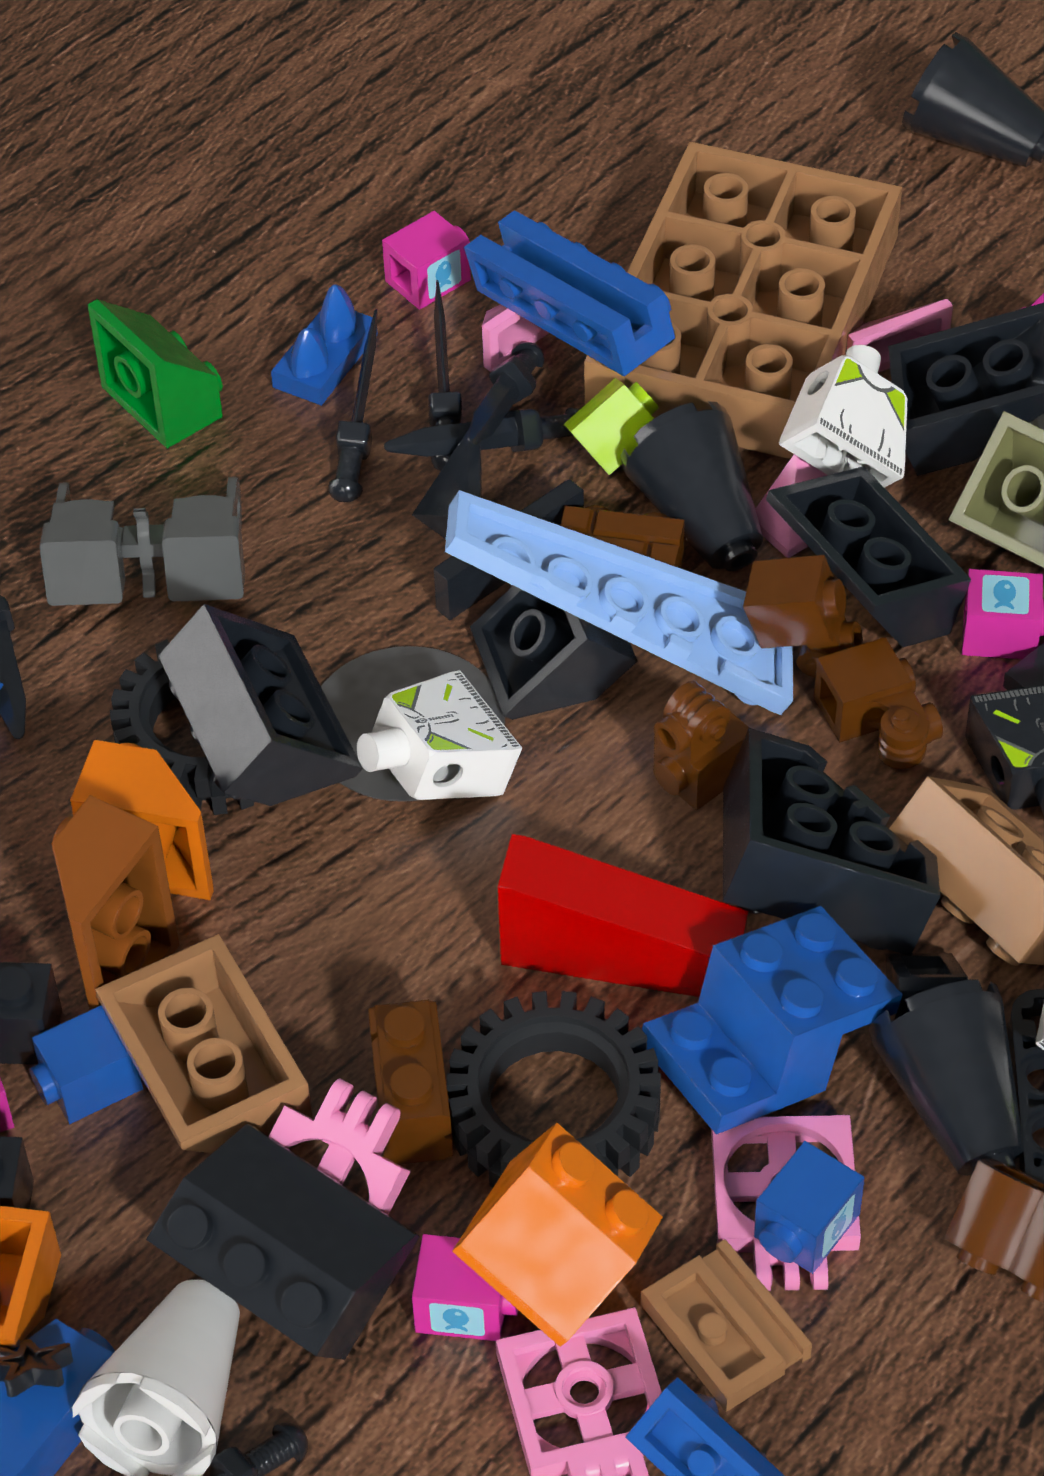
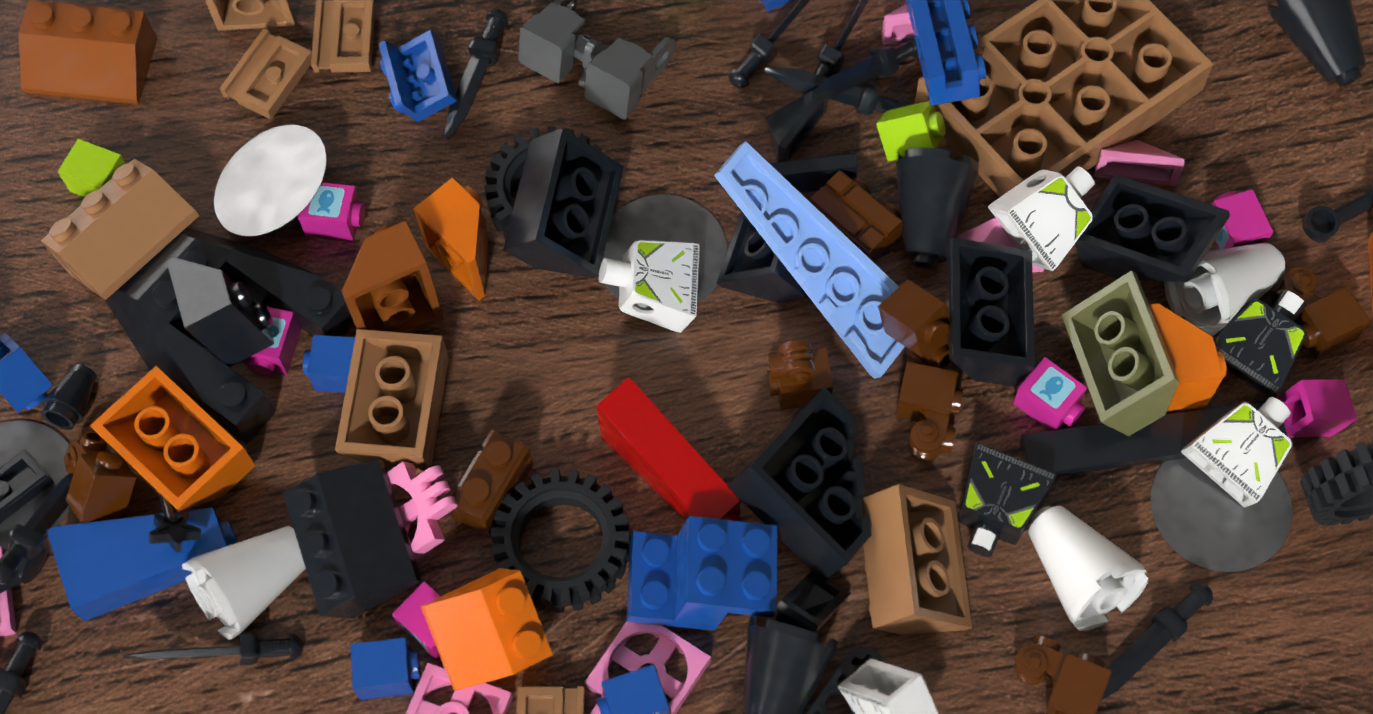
camera: 35 degrees right, 15 degrees up
(445, 1380) = (384, 668): none -> blue brick

